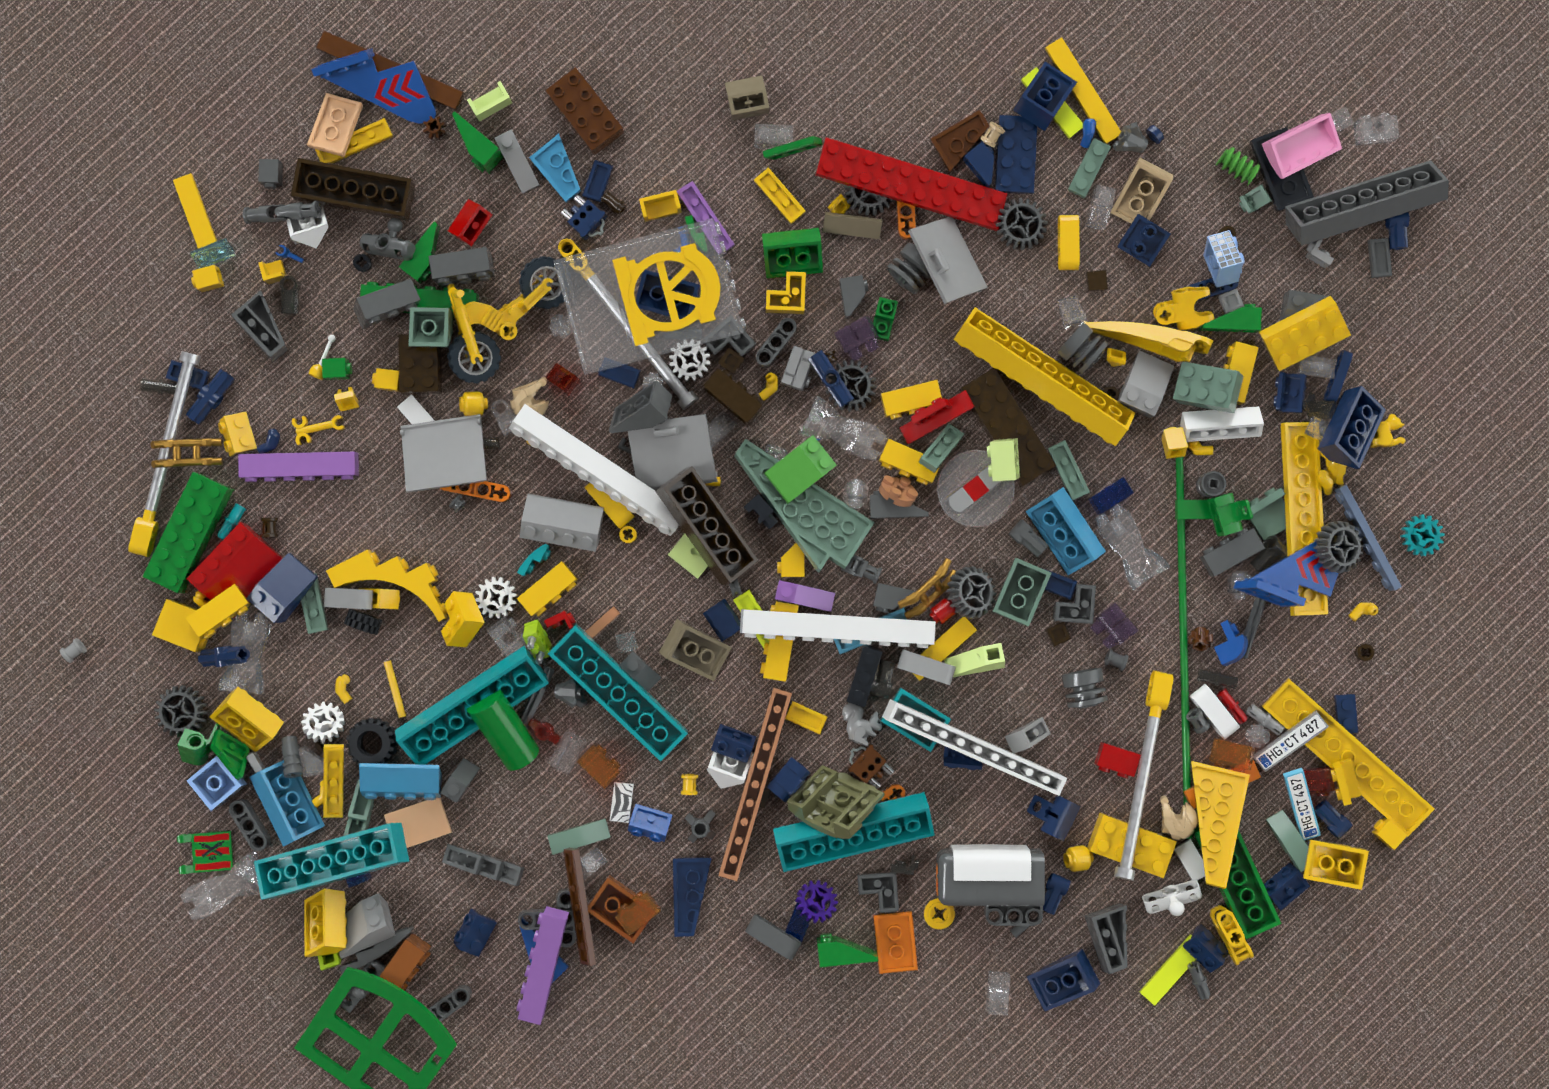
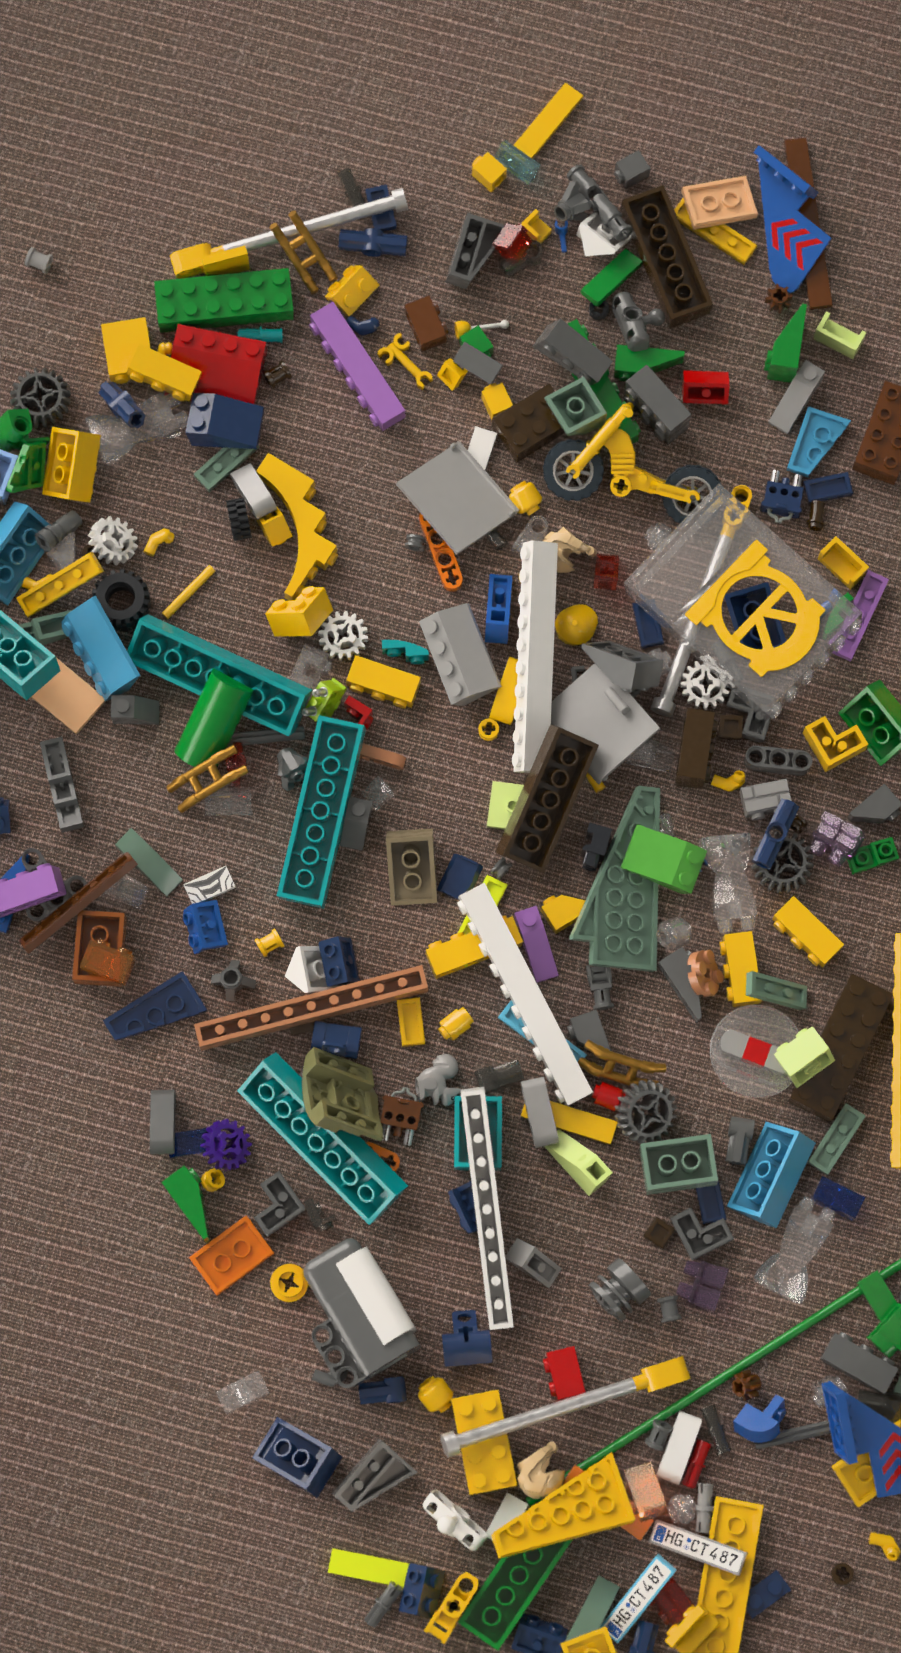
camera: 60 degrees right, 10 degrees down
(160, 514) = (226, 262): none -> yellow tile
(255, 762) = (33, 497): light grey tile -> none
(271, 233) = (572, 204): none -> dark grey rock
(273, 295) = (512, 241): none -> clear red brick
(296, 395) = (425, 323): none -> reddish brown brick
(344, 239) = (611, 277): none -> green tile
(351, 377) = (478, 363): none -> dark grey tile
(535, 752) = (219, 780): none -> pearl gold piece
(543, 473) = (498, 609): none -> blue slope
(589, 424) = (576, 624): none -> yellow hat
(600, 765) = (234, 840): clear orange brick -> none
(827, 687) = (455, 1024): none -> yellow brick
(837, 920) = (206, 1179): none -> yellow bush
(864, 675) = (491, 1052): black brick -> none
(935, 416) = (806, 965): red bracket -> none

